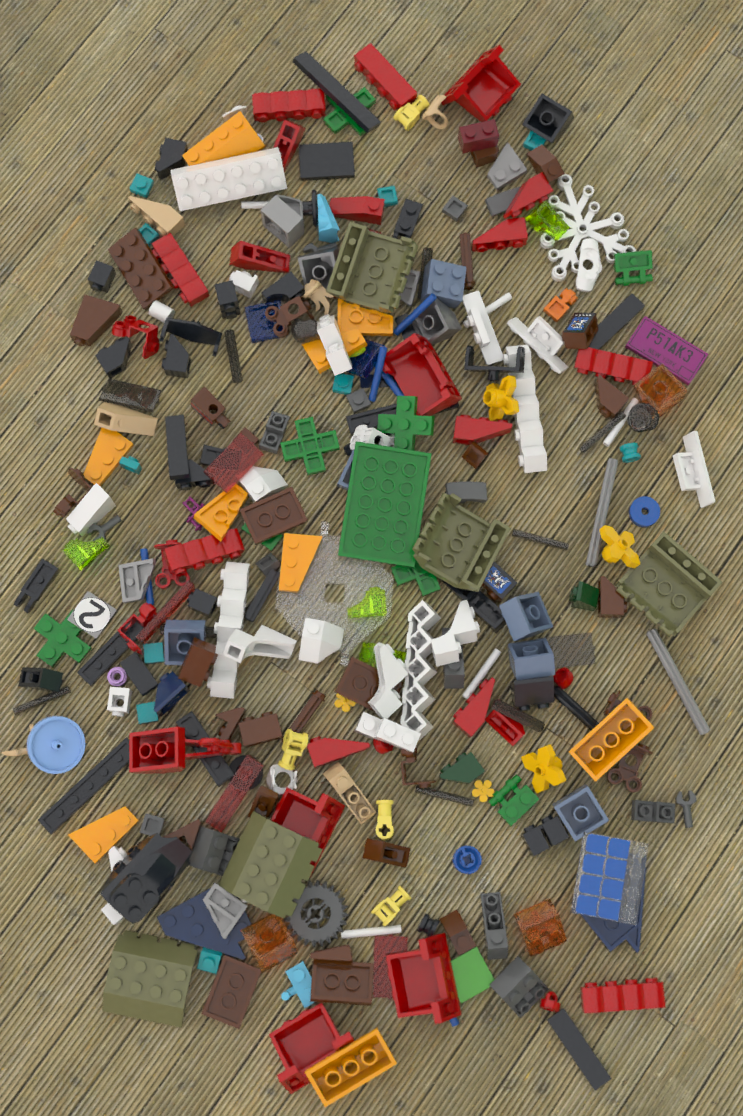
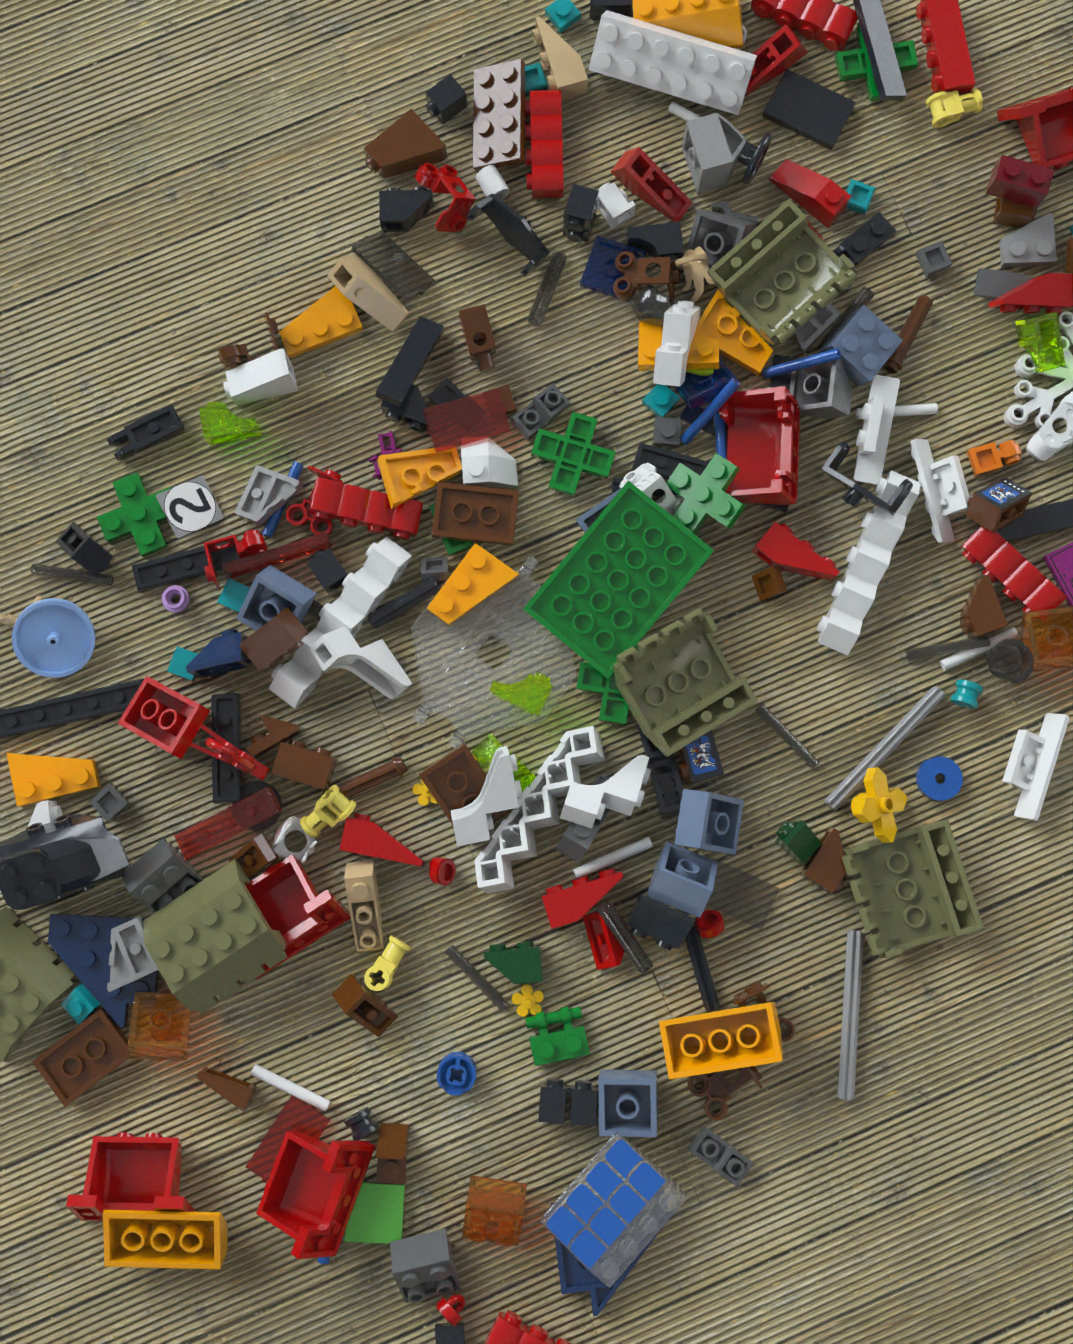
camera: 35 degrees right, 5 degrees up
(104, 528) = (267, 410): dark grey bar -> none
(115, 695) = (157, 620): white brick -> none
(130, 464) = (343, 350): teal plate -> none
(139, 674) = (202, 611): black slope -> none
(177, 359) = (474, 254): black slope -> none
(189, 832) = (146, 837): reddish brown slope -> none
(301, 982) = (171, 1100): medium azure plate -> none
(319, 640) = (437, 700): white slope -> none
(327, 224) = (760, 183): medium azure slope -> none
(335, 920) = (265, 1019): dark grey gear -> none
(342, 982) = (217, 1129): reddish brown plate -> none
(387, 732) = (451, 863): white arch -> none
(390, 907) = (327, 1073): light yellow connector -> none
(412, 757) = (465, 902): reddish brown piece -> none
(432, 109) = (983, 116): tan piece -> none
(468, 491) = (733, 623): dark grey slope -> none
(494, 926) = (440, 1173): dark grey slope -> none
(499, 398) = (843, 530): yellow plant -> none
(506, 234) = (977, 327): red slope -> none
(546, 768) = (619, 1022): yellow plant -> none
(686, 807) = (765, 1175): dark grey bar -> none

